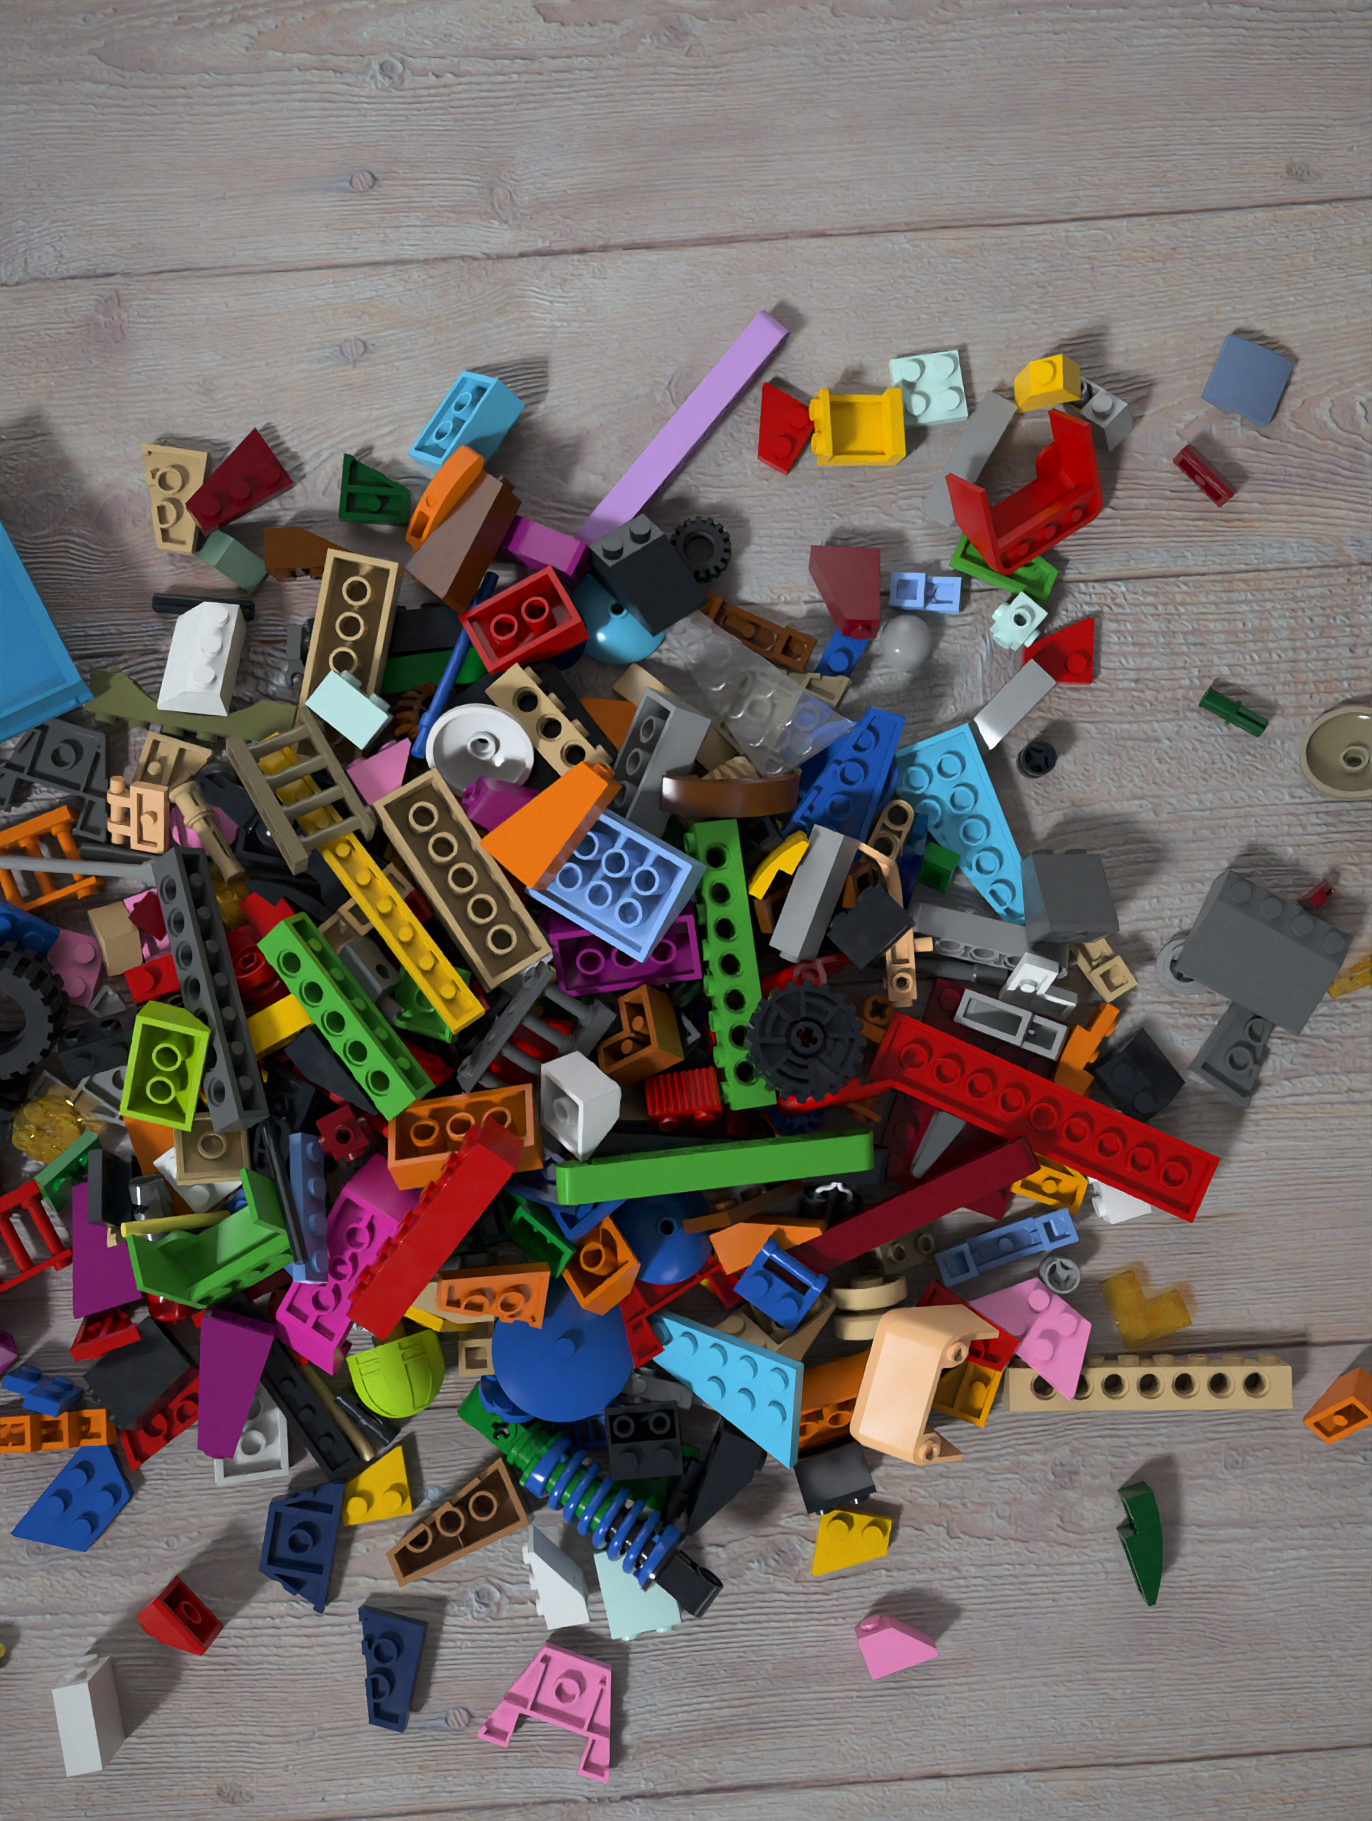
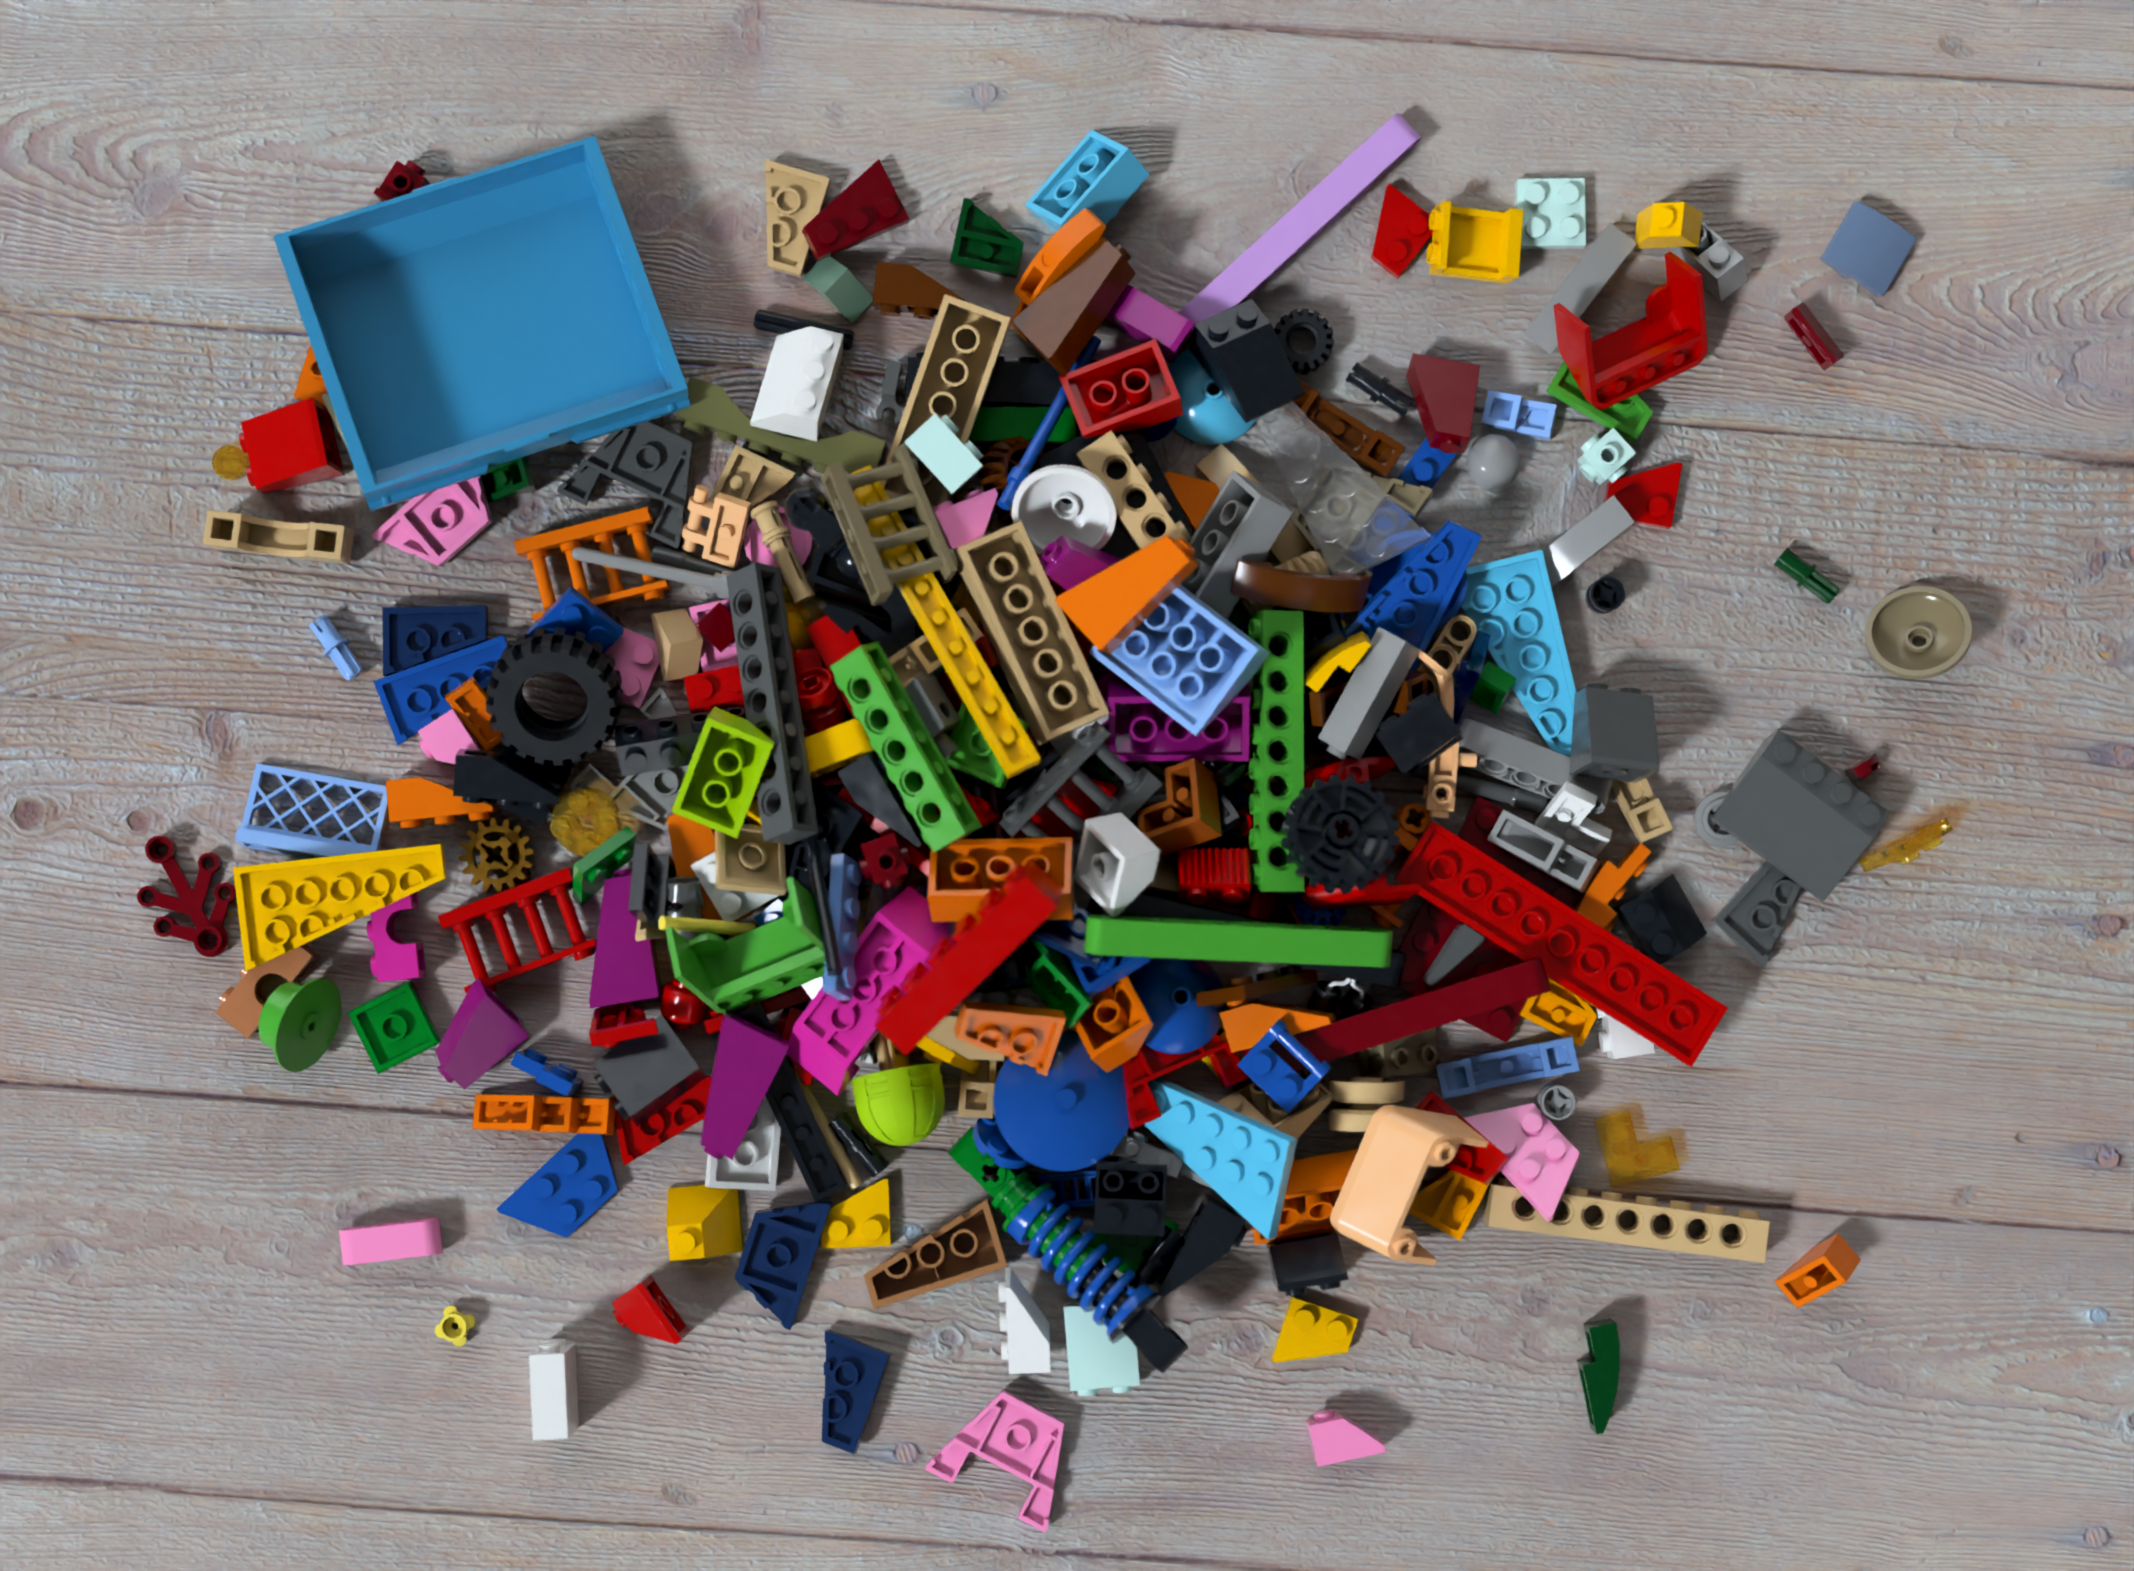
camera: 10 degrees right, 0 degrees up
(219, 1519) = (703, 1222): none -> yellow slope
(784, 586) = (1380, 389): none -> black pin

